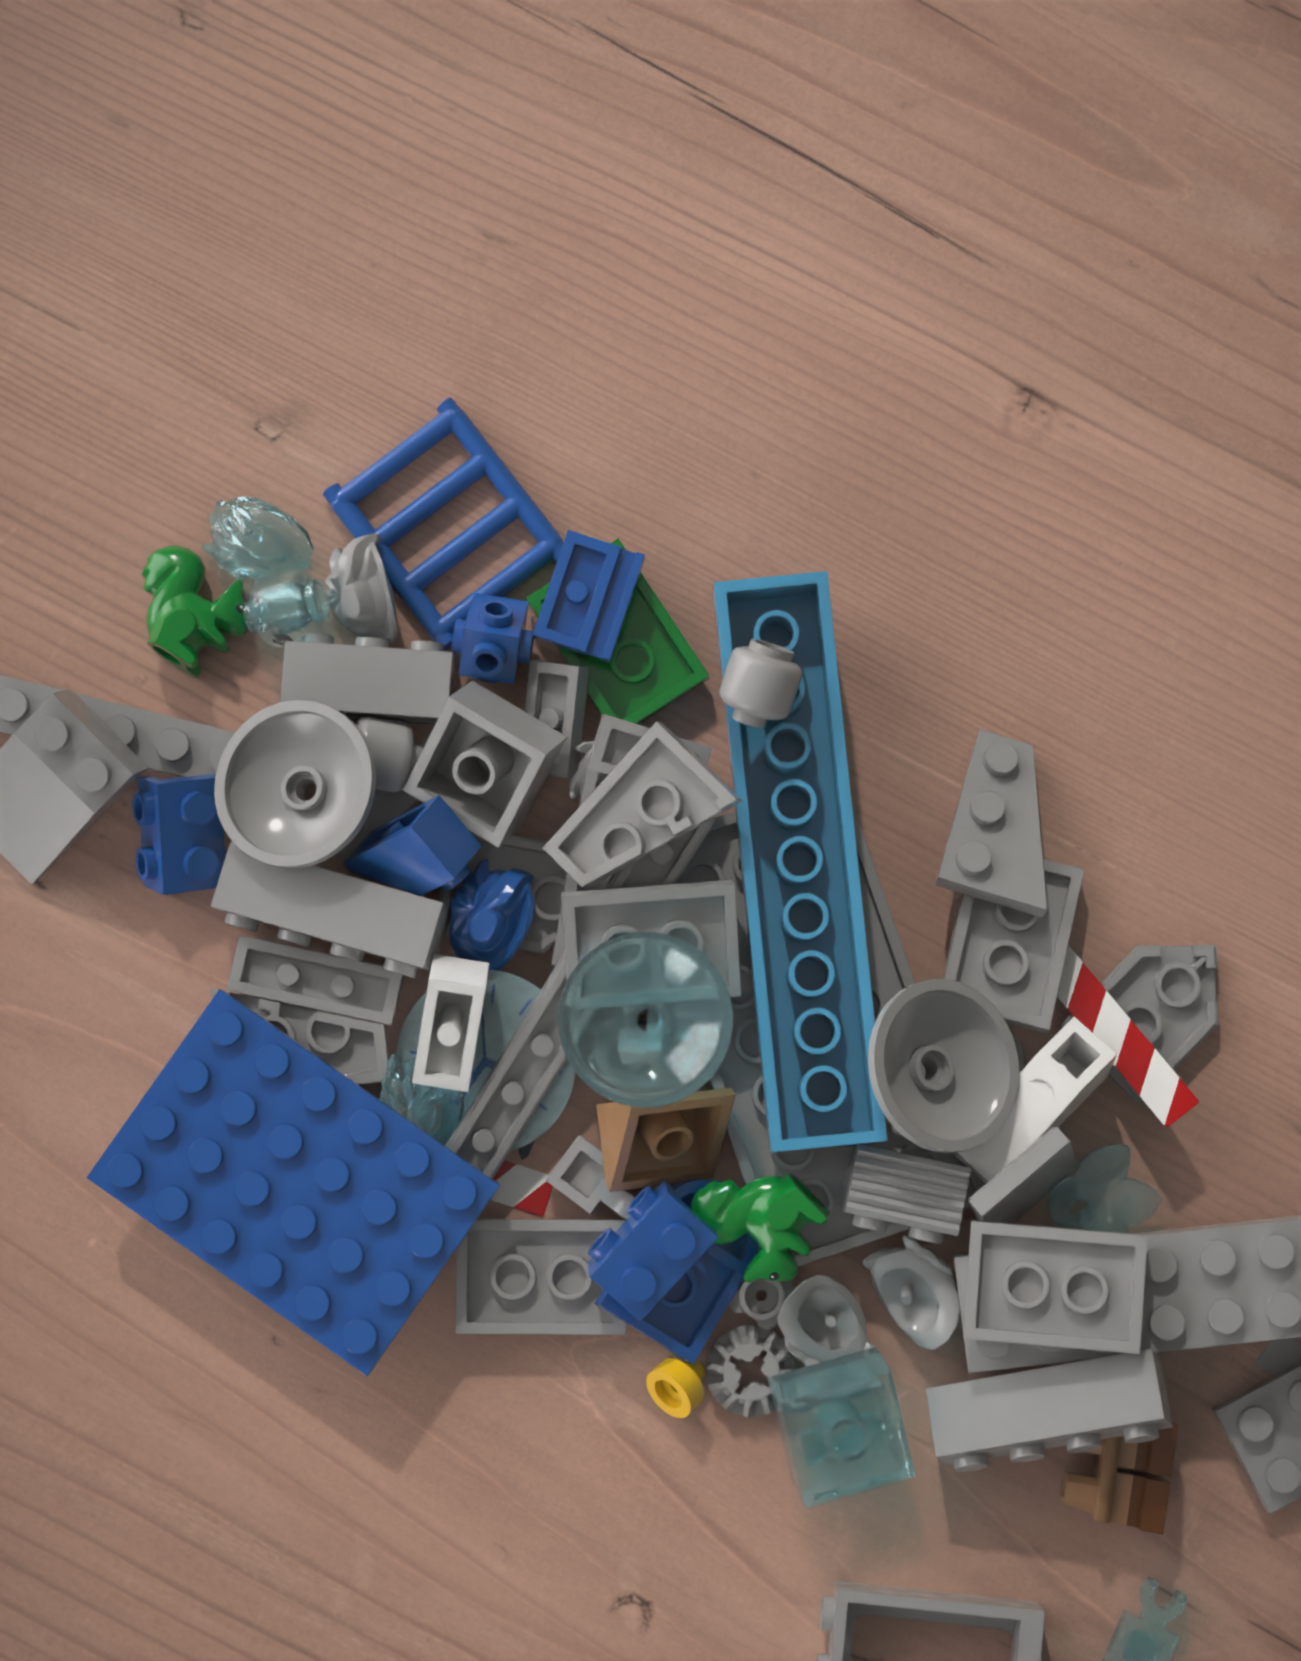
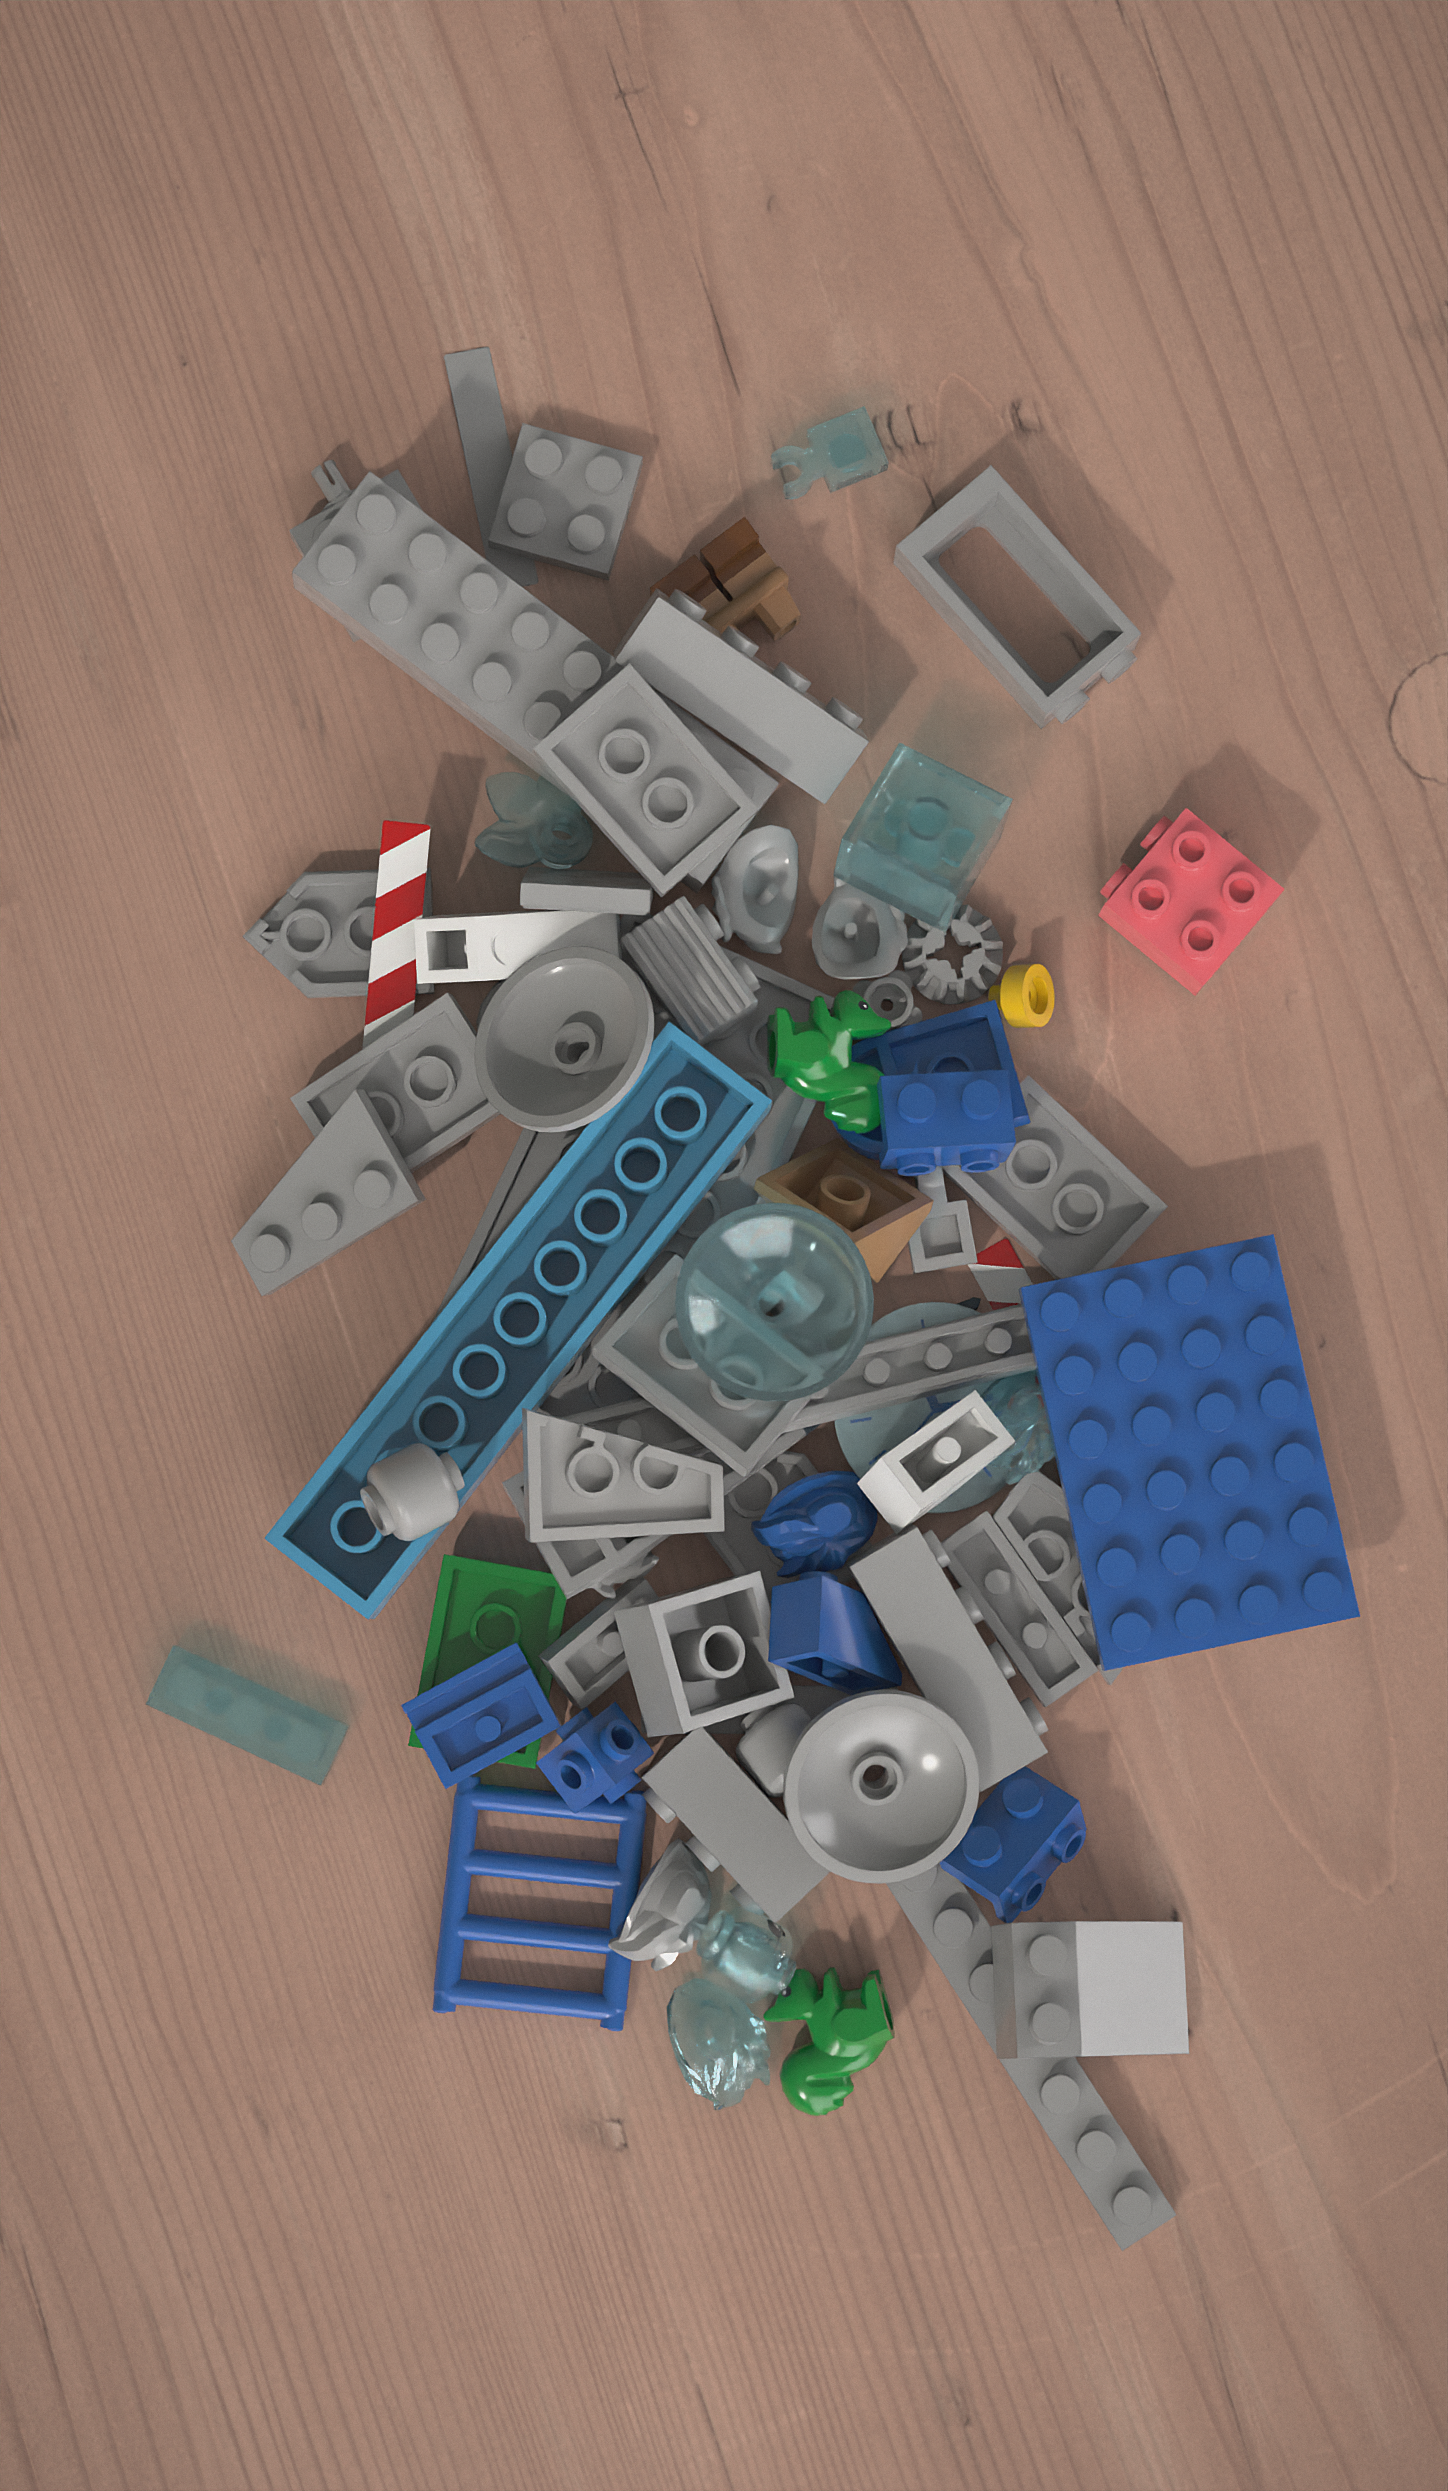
camera: 140 degrees left, 0 degrees up
(628, 1553) = (1188, 899): none -> coral brick
(736, 467) = (248, 1715): none -> clear light blue plate

